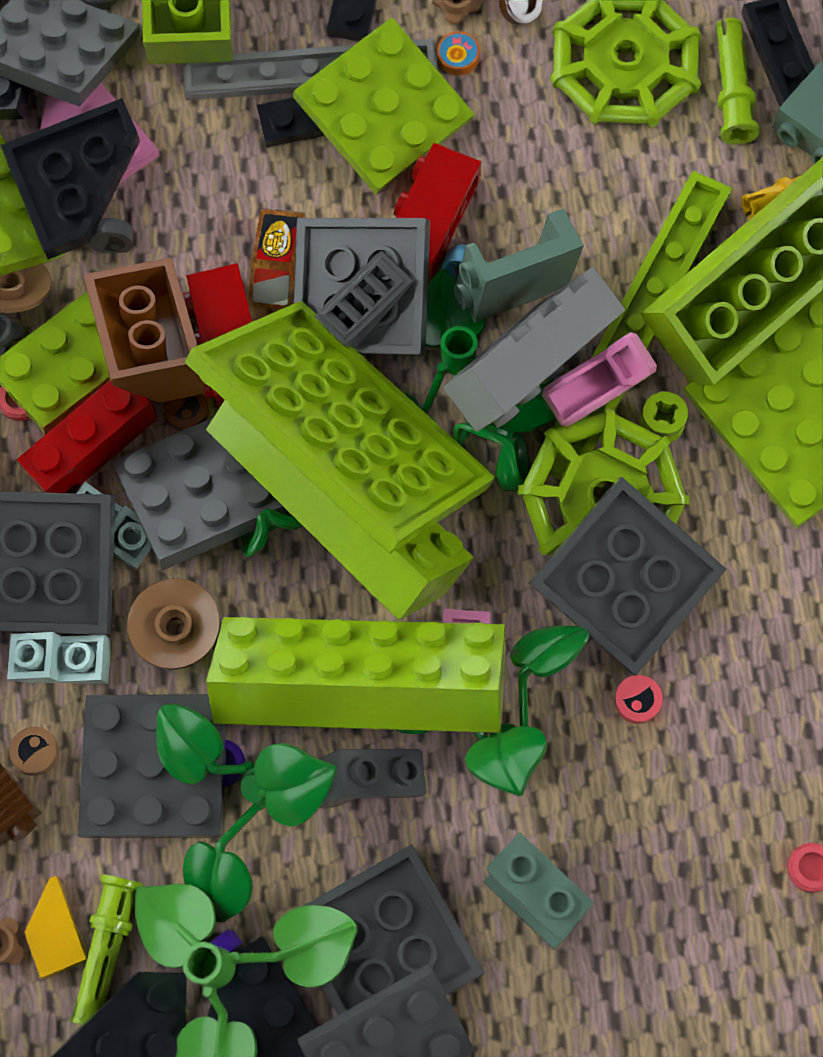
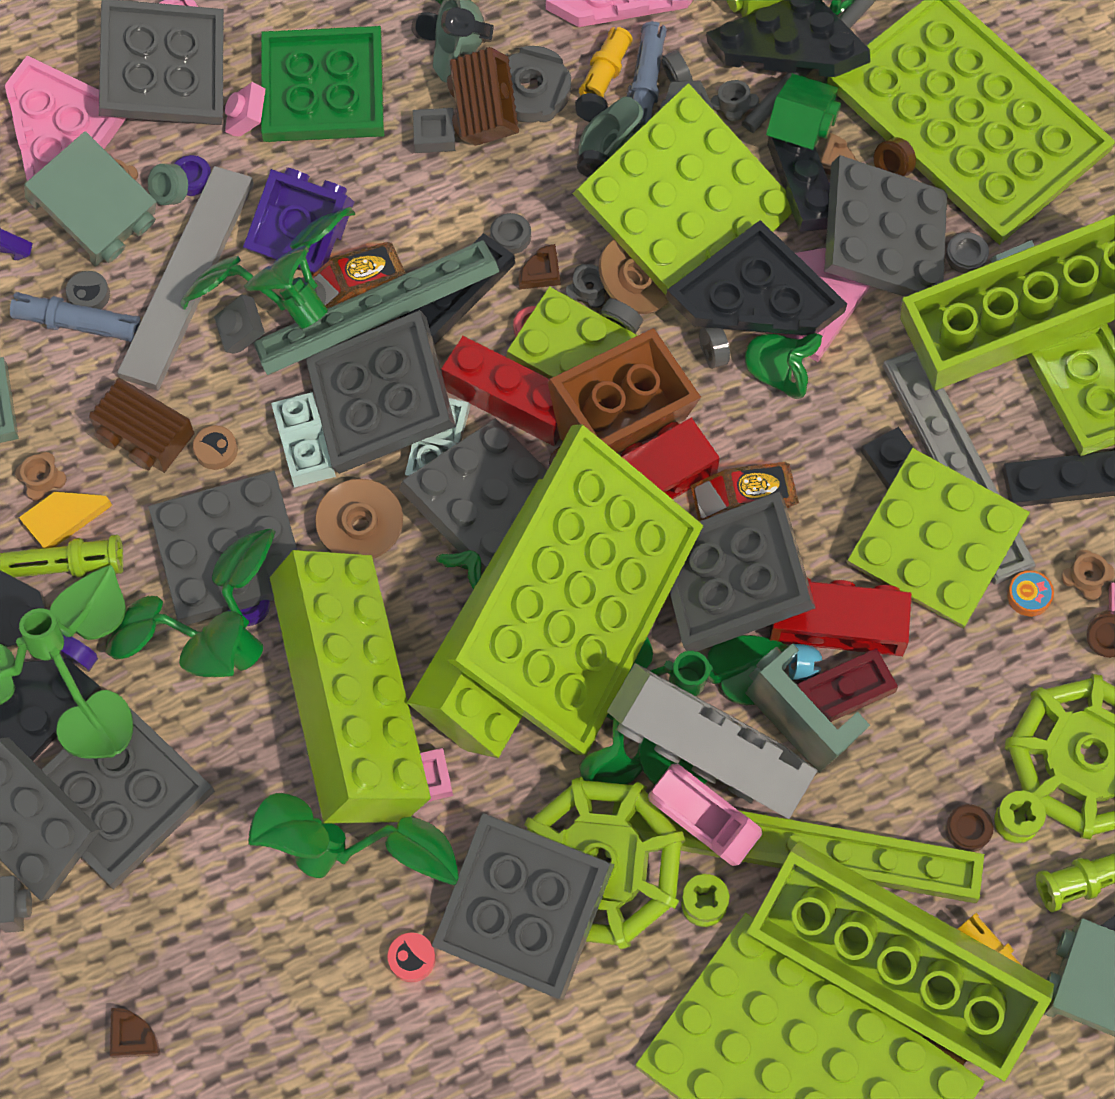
camera: 70 degrees right, 5 degrees down
(44, 309) = (622, 315): none -> dark grey tile
(142, 190) = (775, 357): none -> green piece
(375, 775) = (267, 733): dark grey bracket -> none
(376, 311) = (689, 562): dark grey slope -> none
(497, 223) = (850, 685): none -> dark red plate
(537, 891) = (187, 902): sand green panel -> none
(639, 991) = (131, 1036): none -> reddish brown tile
(660, 178) = (969, 828): none -> reddish brown tile
(665, 143) = (1012, 824): none -> lime wheel

